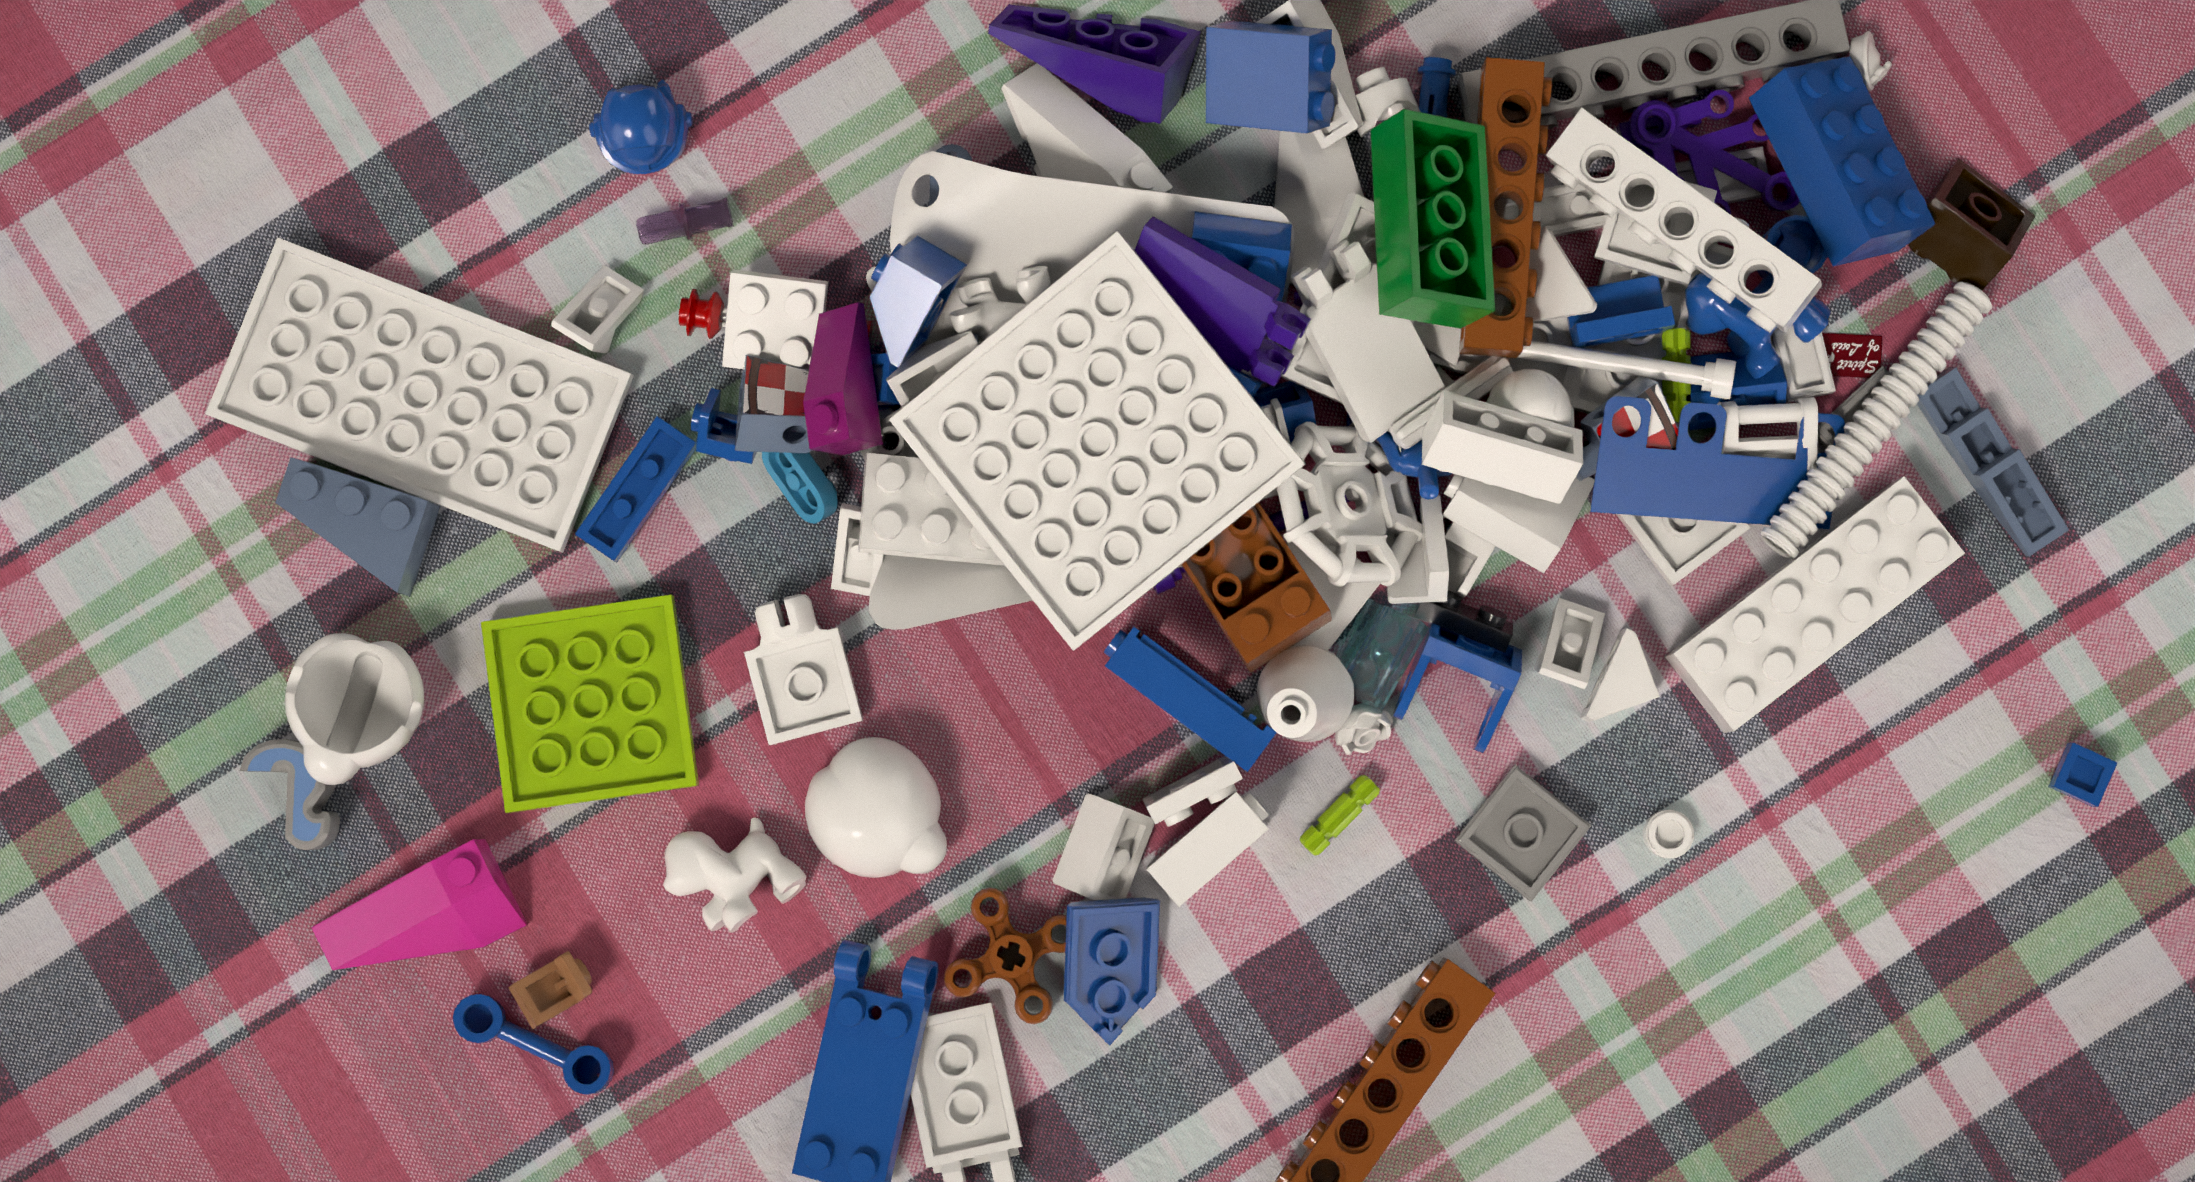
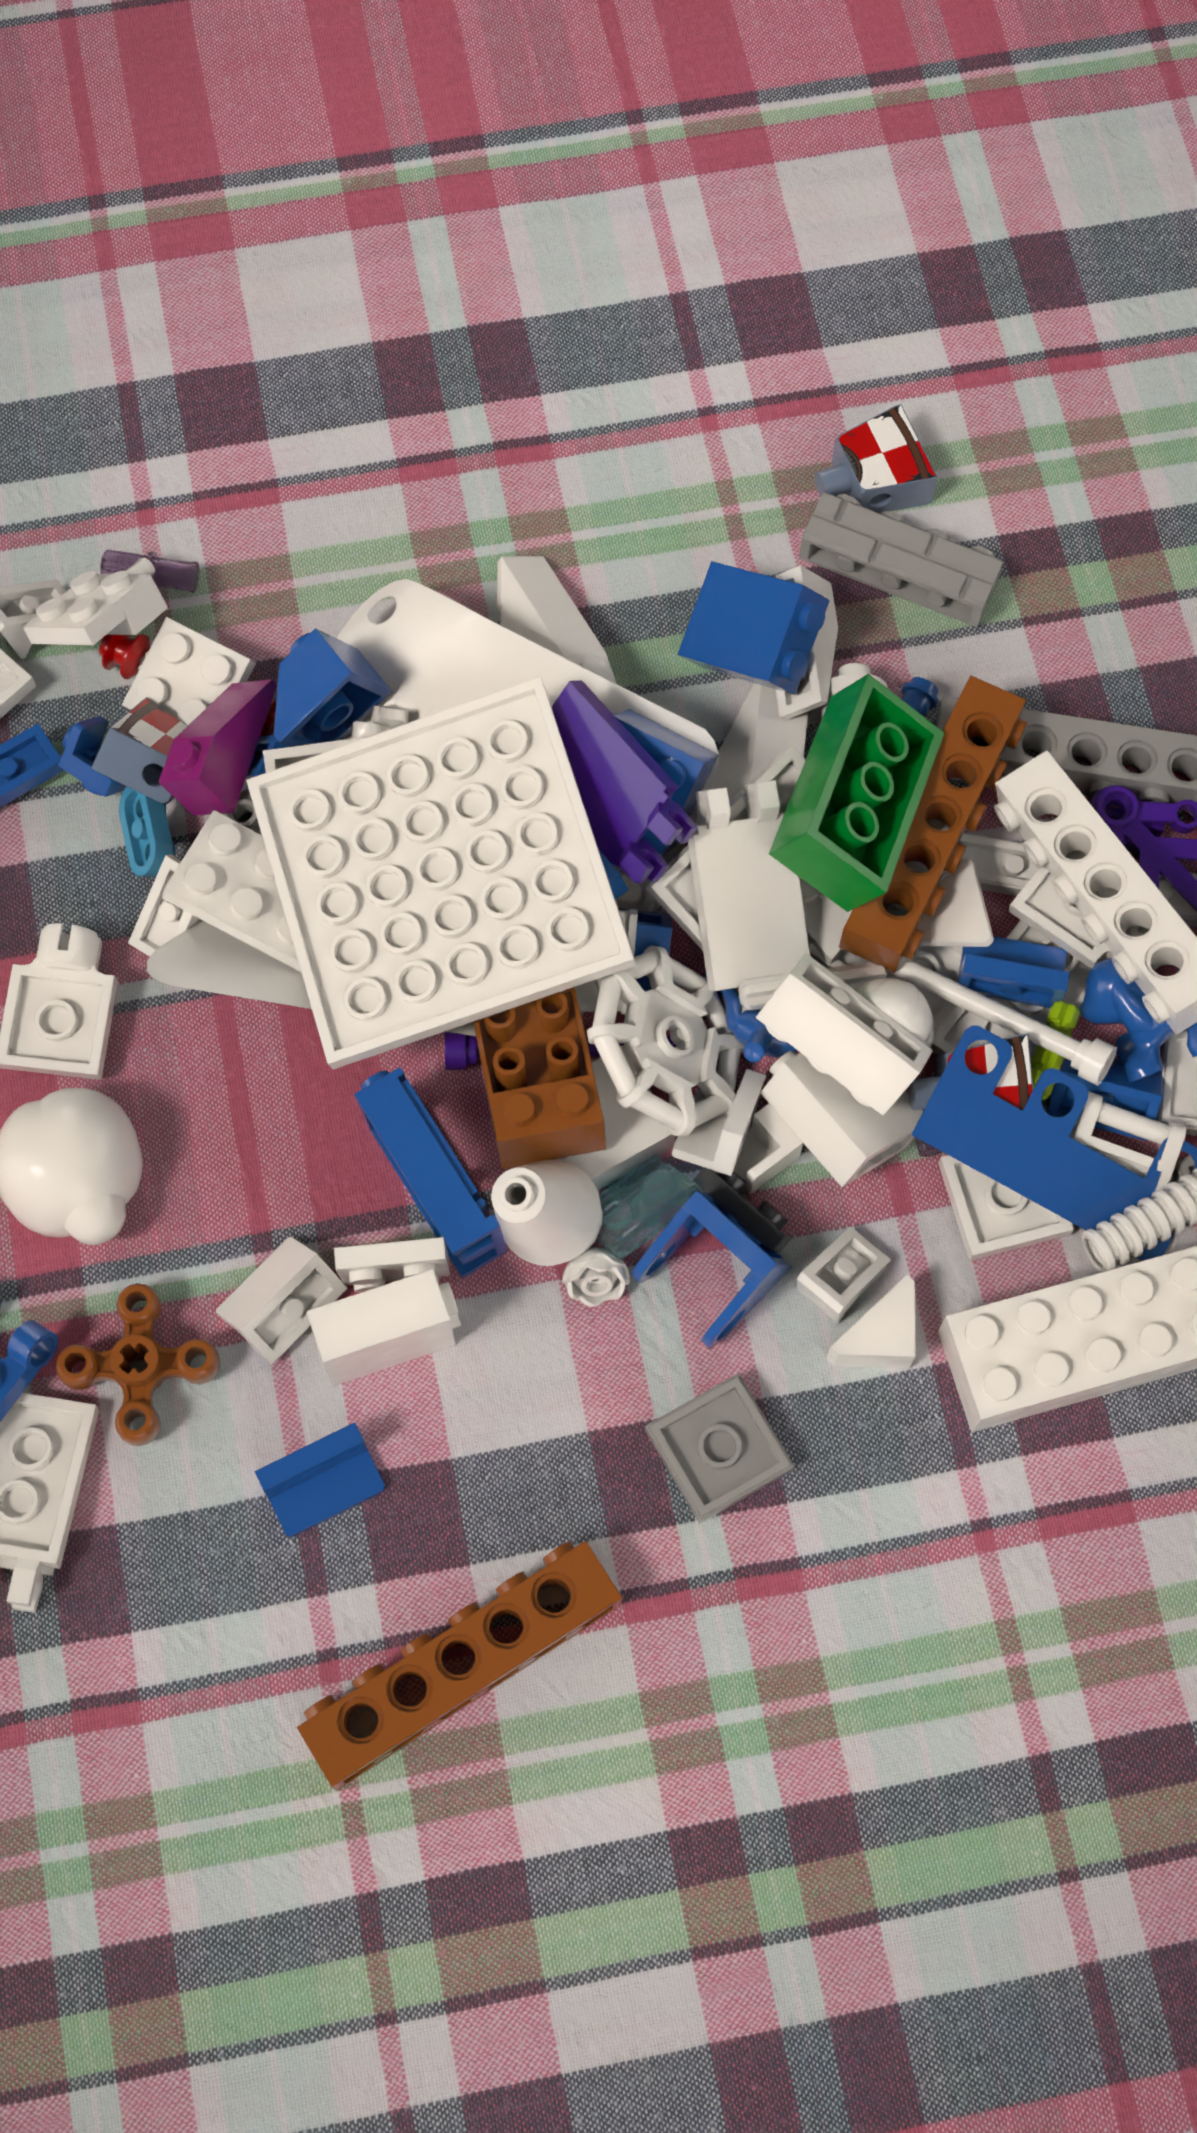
camera: 10 degrees right, 15 degrees down
(641, 128) = (147, 473): blue helmet -> none
(667, 291) = (99, 607): none -> white plate
(1111, 960) = (234, 1408): blue tile -> none
(1120, 65) = (619, 586): dark purple wedge -> none
(1206, 991) = (320, 1480): none -> blue panel
(1339, 815) = (536, 1357): lime axle -> none
(1668, 834) = (873, 1512): white tile -> none

